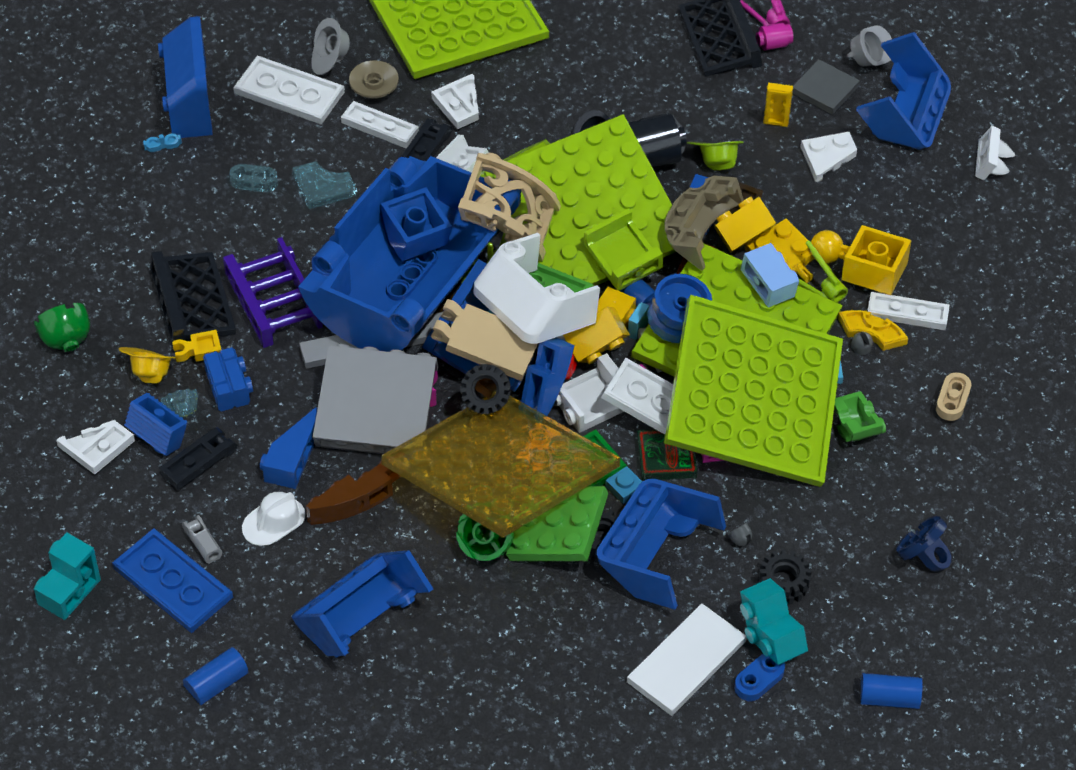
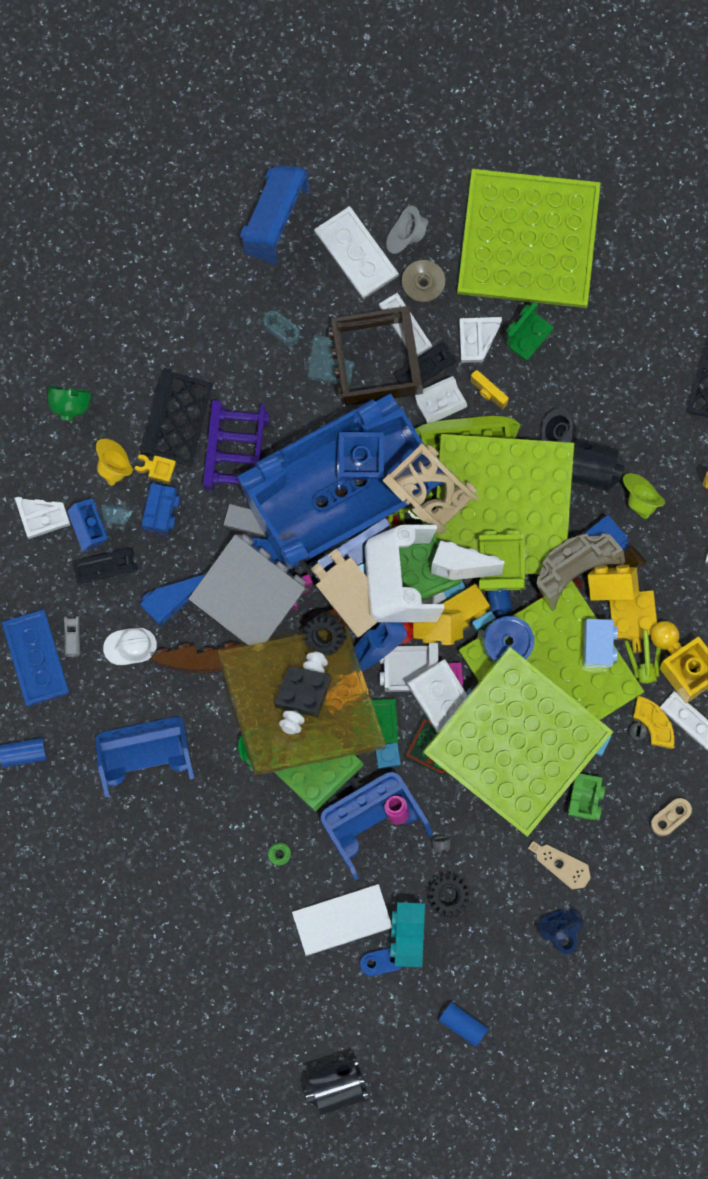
camera: 35 degrees right, 25 degrees up
(169, 142) = (226, 253): dark azure piece -> none
(351, 121) = (370, 320): none -> dark brown window
(501, 444) = (303, 692): none -> black plate
(502, 134) = (489, 390): none -> yellow plate
(507, 76) = (528, 333): none -> green bracket
(573, 623) = (276, 847): none -> bright green plate
(587, 262) = (462, 563): none -> white slope
(673, 515) = (397, 810): none -> dark pink brick
(892, 492) = (569, 868): none -> tan piece

